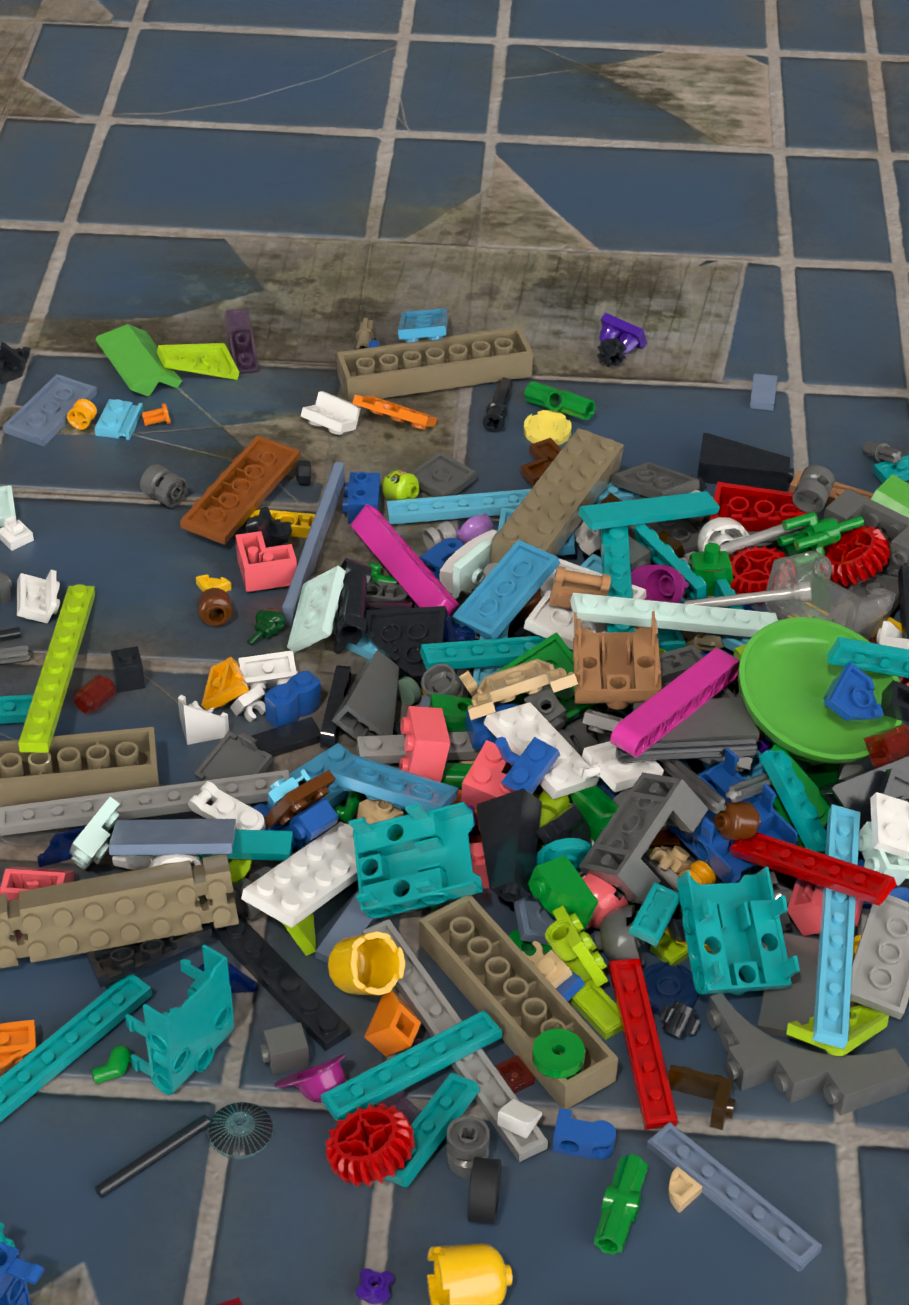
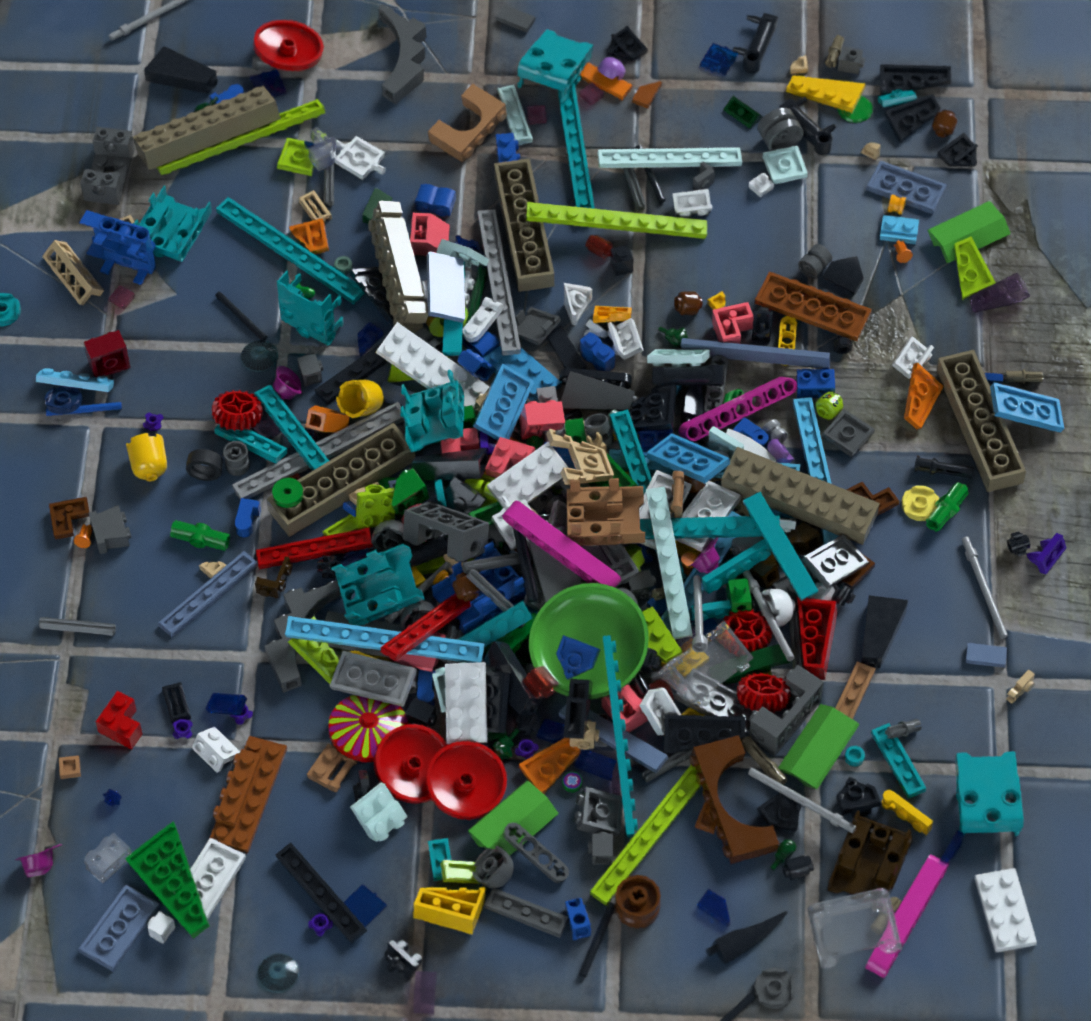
camera: 90 degrees right, 15 degrees up
(65, 1008) = (343, 264): none -> sand green tile
(188, 462) = (845, 274): none -> black slope
(282, 787) = (490, 344): medium azure plate -> none
(299, 799) = (479, 348): reddish brown plate -> none
(518, 1118) = (253, 480): white slope -> none
(529, 767) = (501, 466): blue plate -> none
(624, 391) = (971, 555): none -> light grey bar
(655, 914) = (387, 539): teal plate -> none
(806, 365) = (1024, 684): none -> tan plate
(813, 489) = (811, 655): dark grey wheel -> none
(816, 533) = (770, 659): green plant -> none

